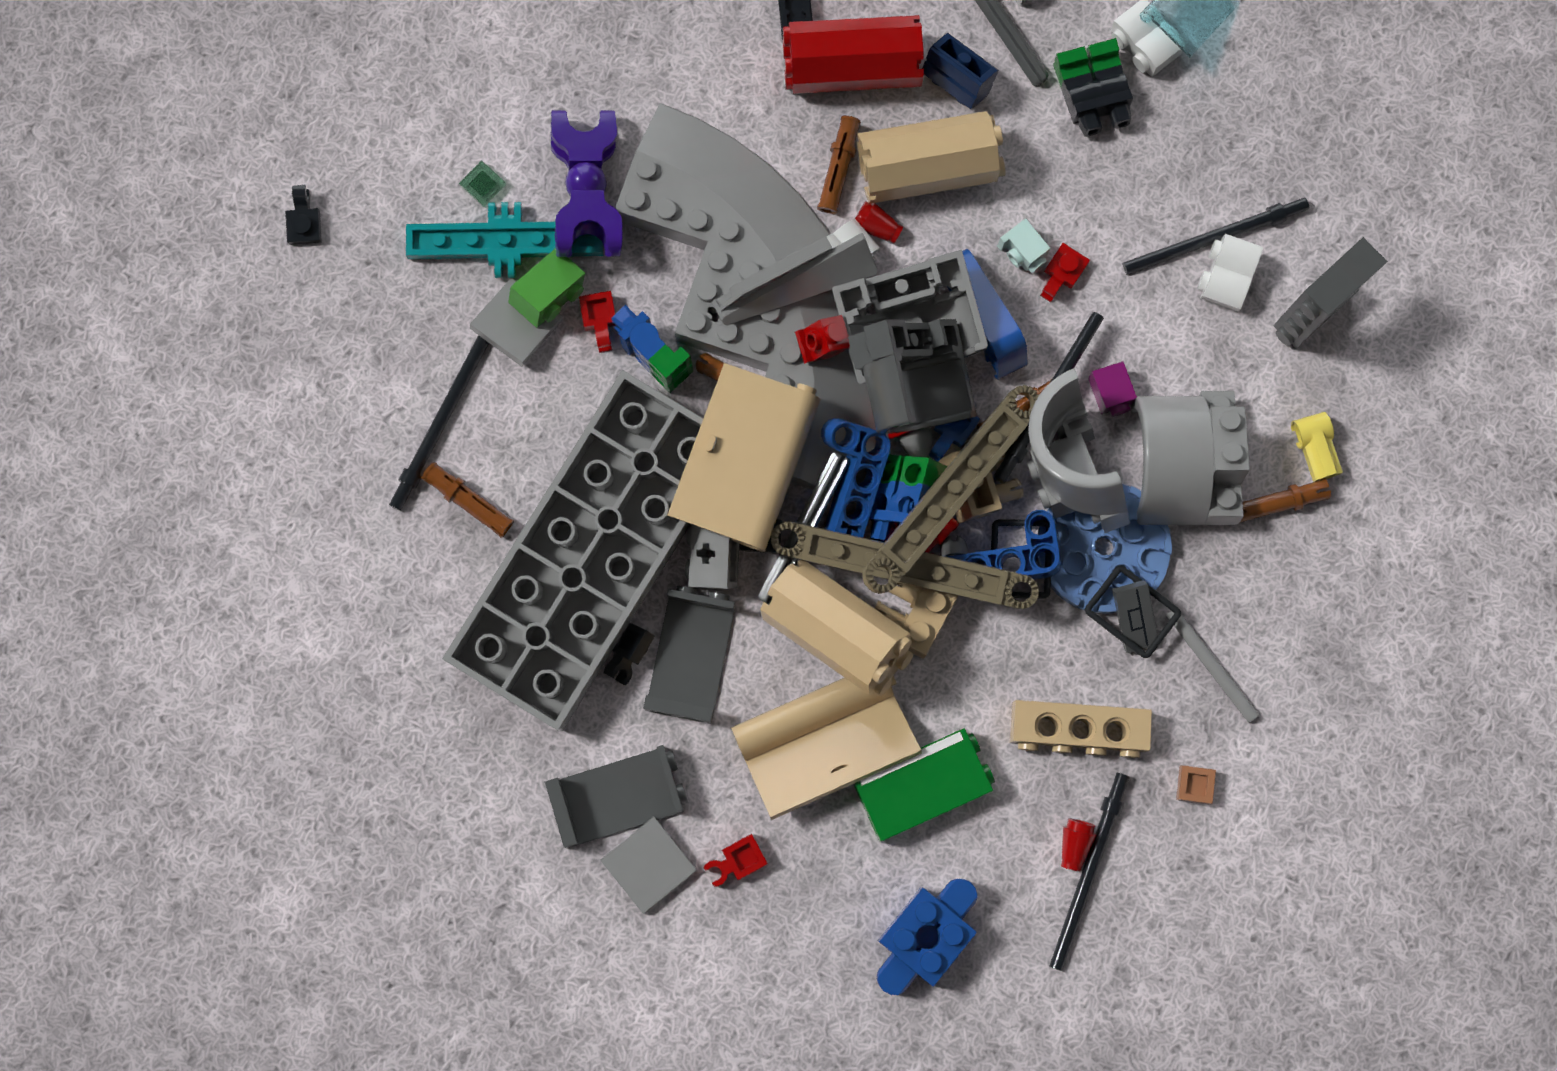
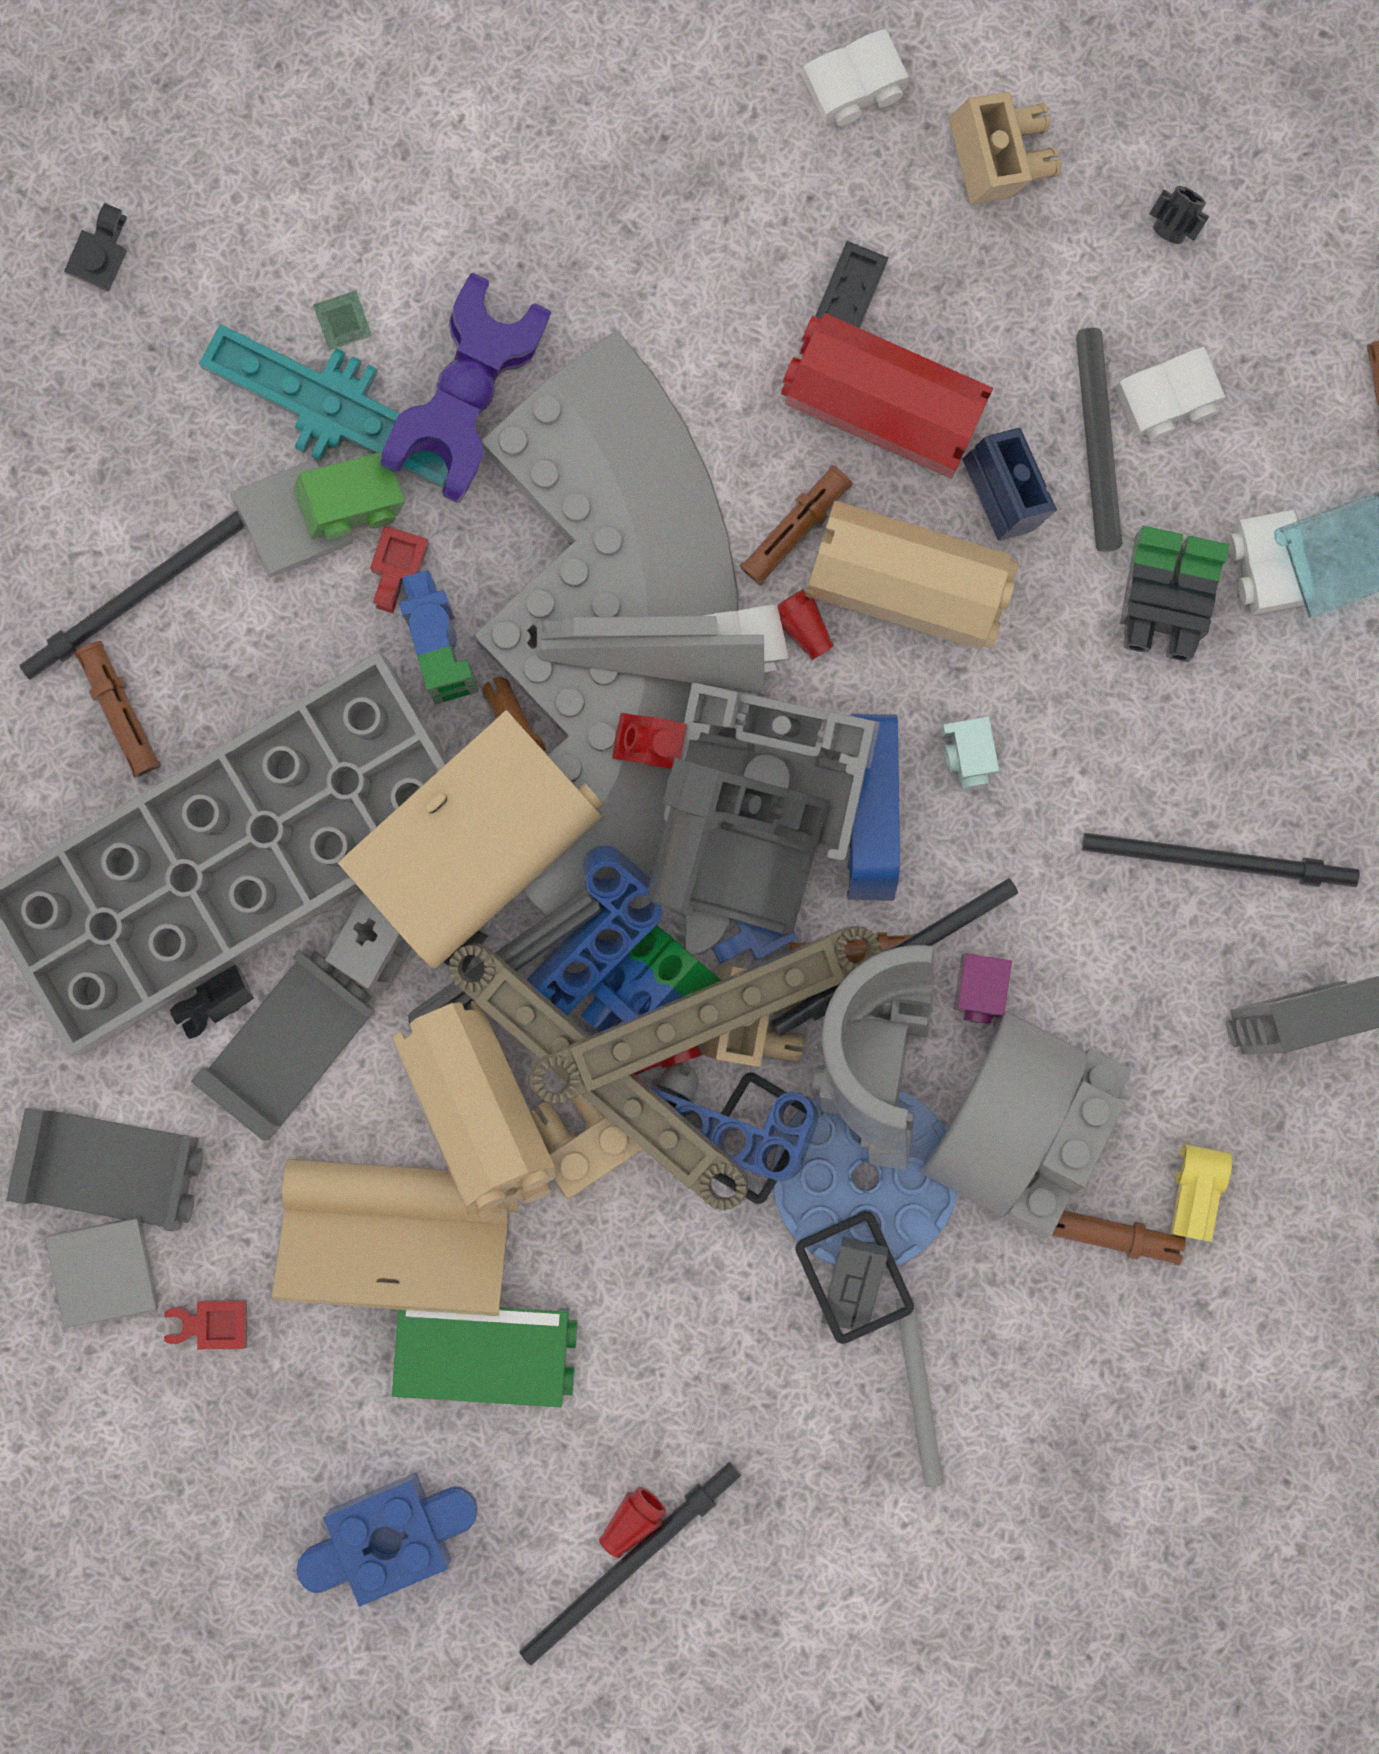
camera: 25 degrees right, 5 degrees up
(1064, 269) = (1006, 803): red plate -> none
(1133, 722) = (782, 1412): tan brick -> none
(1195, 784) = (817, 1528): nougat plate -> none
(1230, 272) = (1210, 916): white brick -> none

